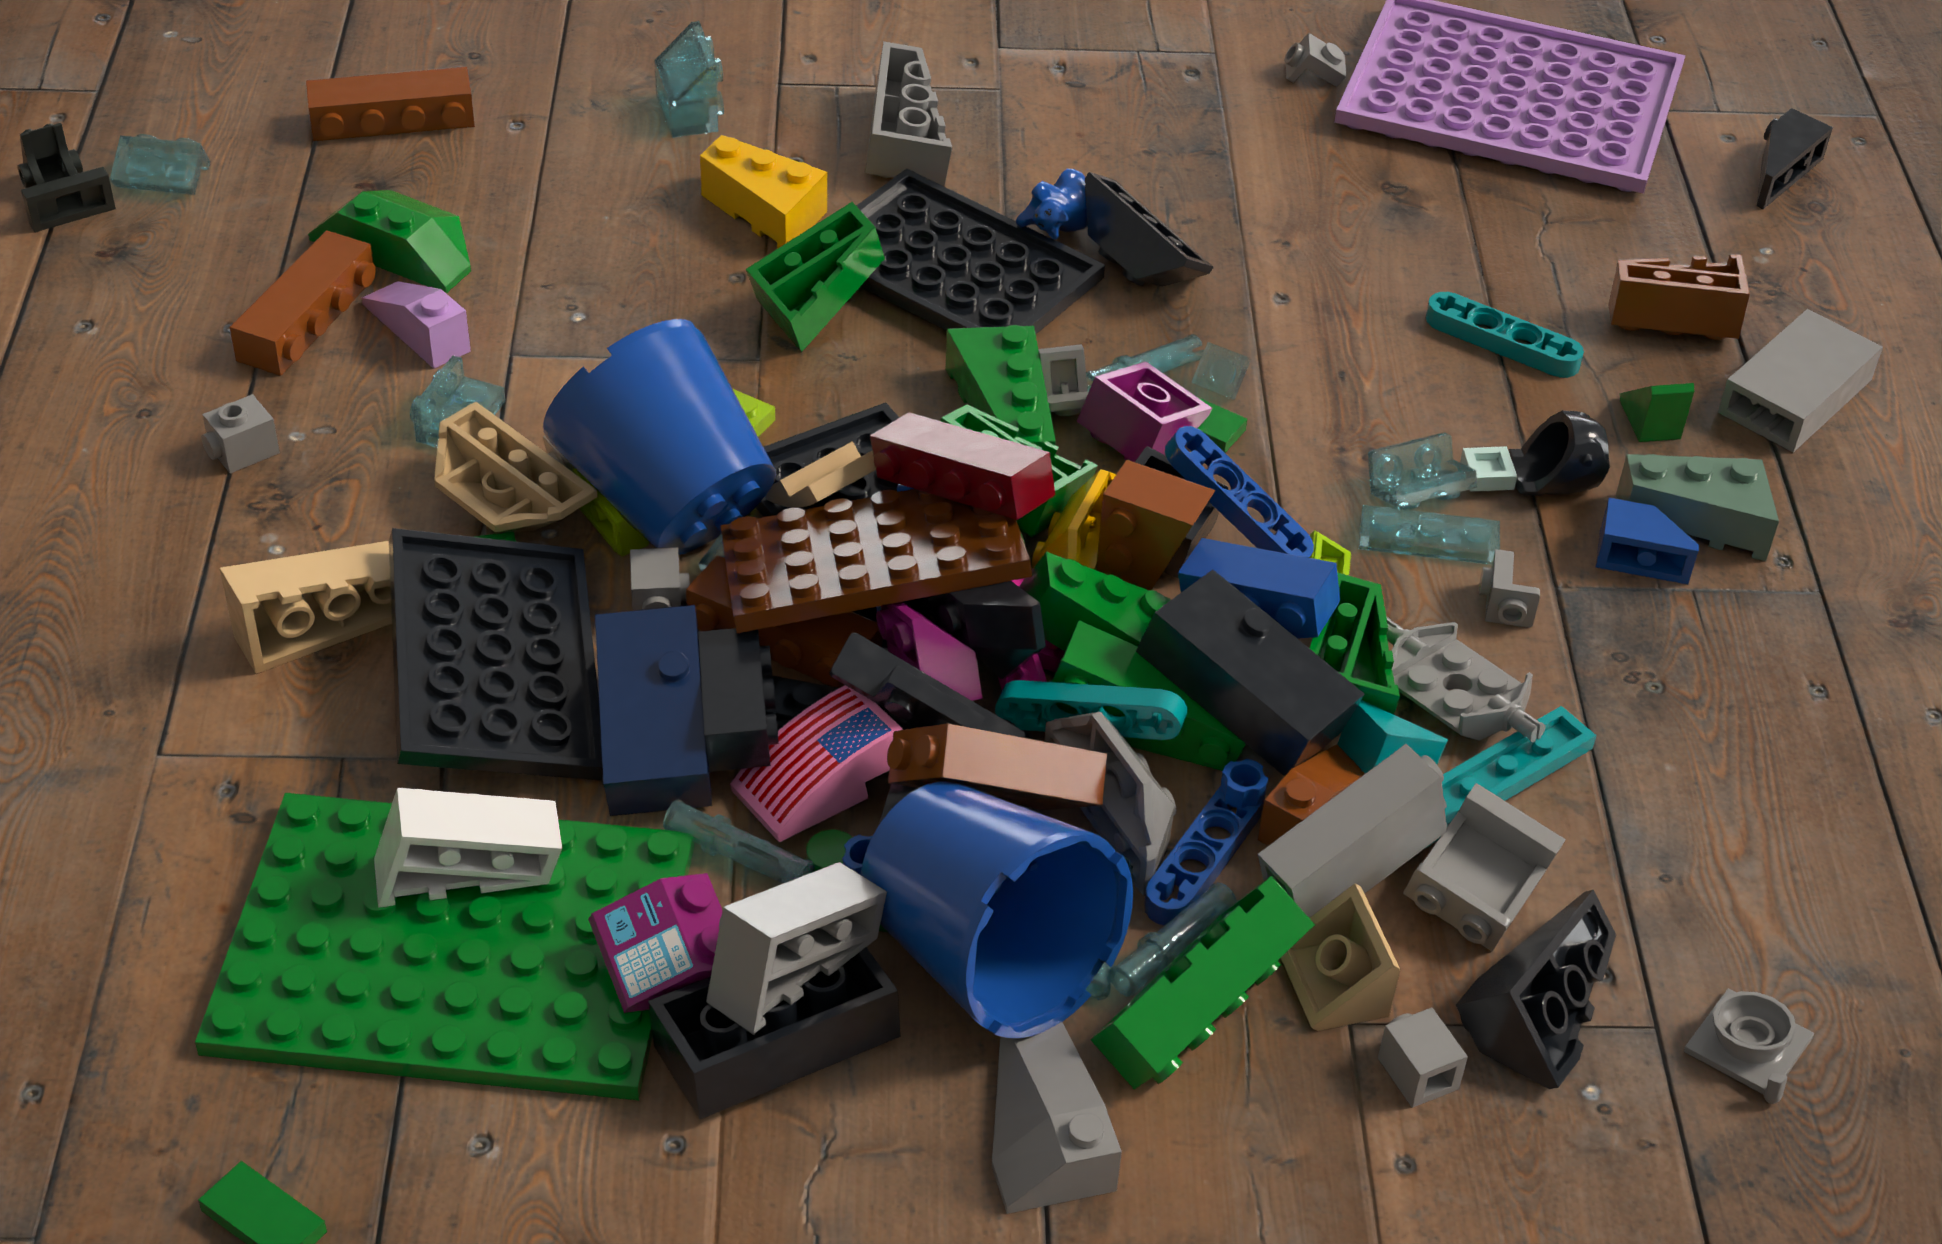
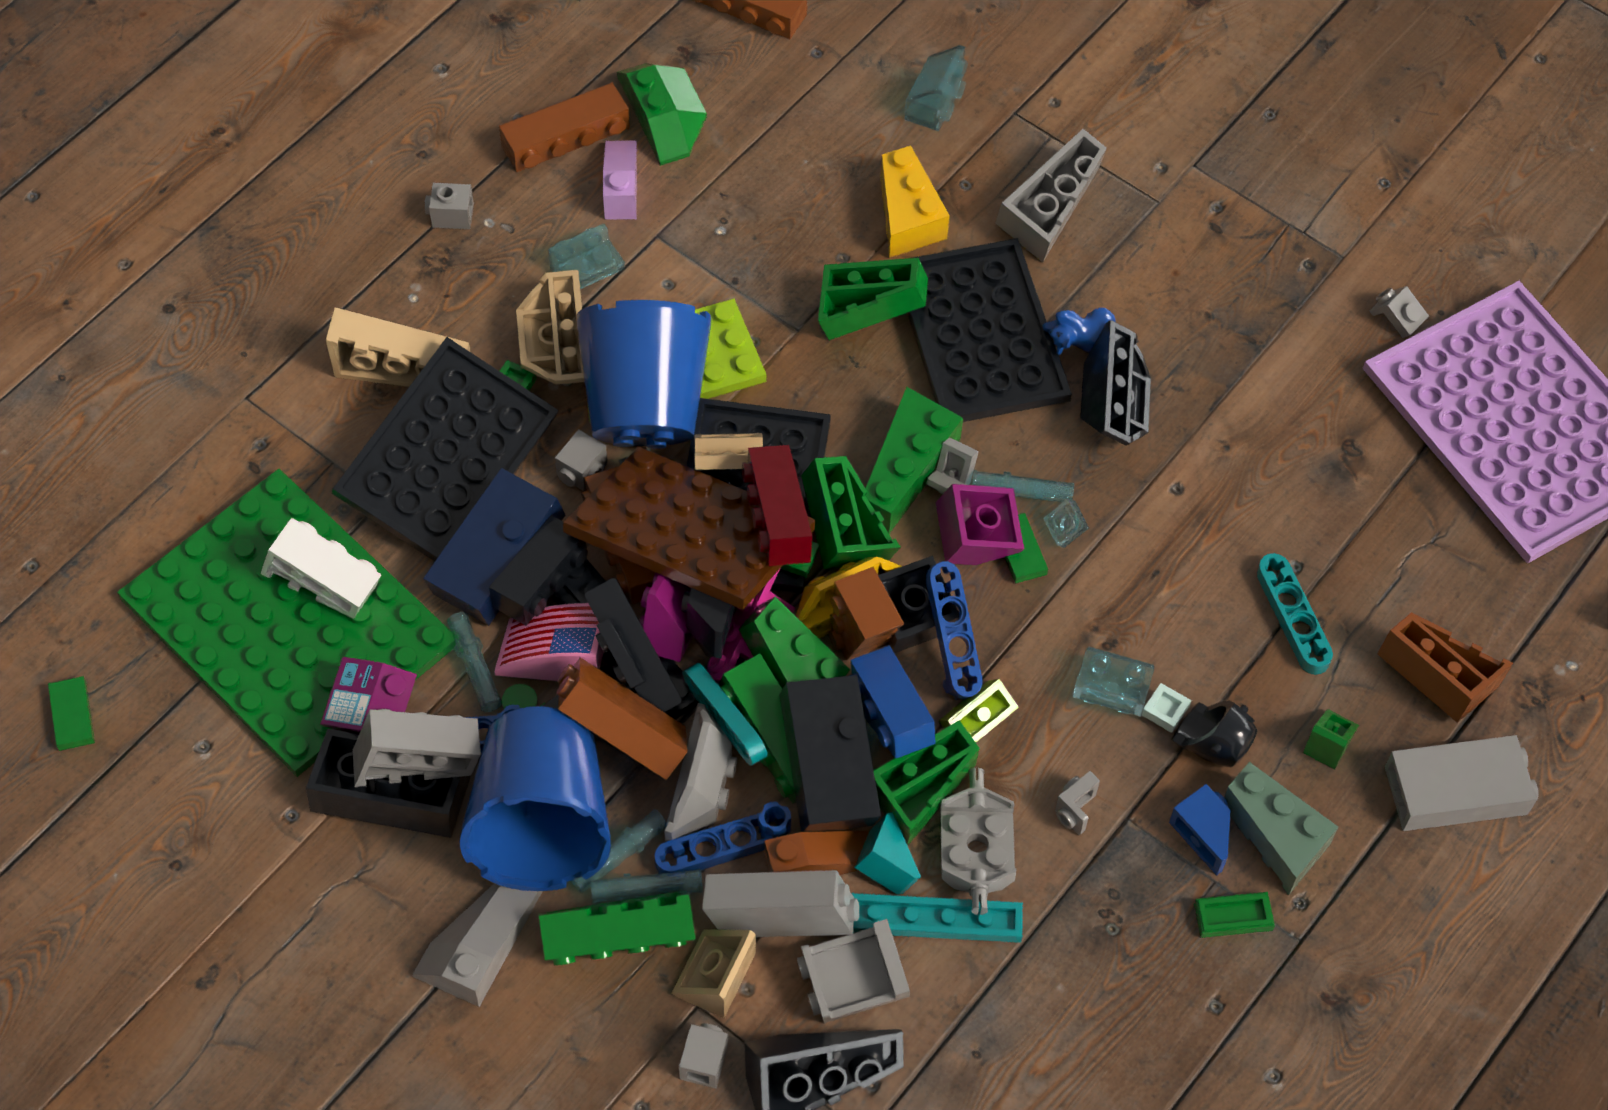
camera: 40 degrees right, 15 degrees up
(1428, 534) = (1080, 728): clear light blue plate -> none
(1744, 603) = (1234, 914): none -> green tile

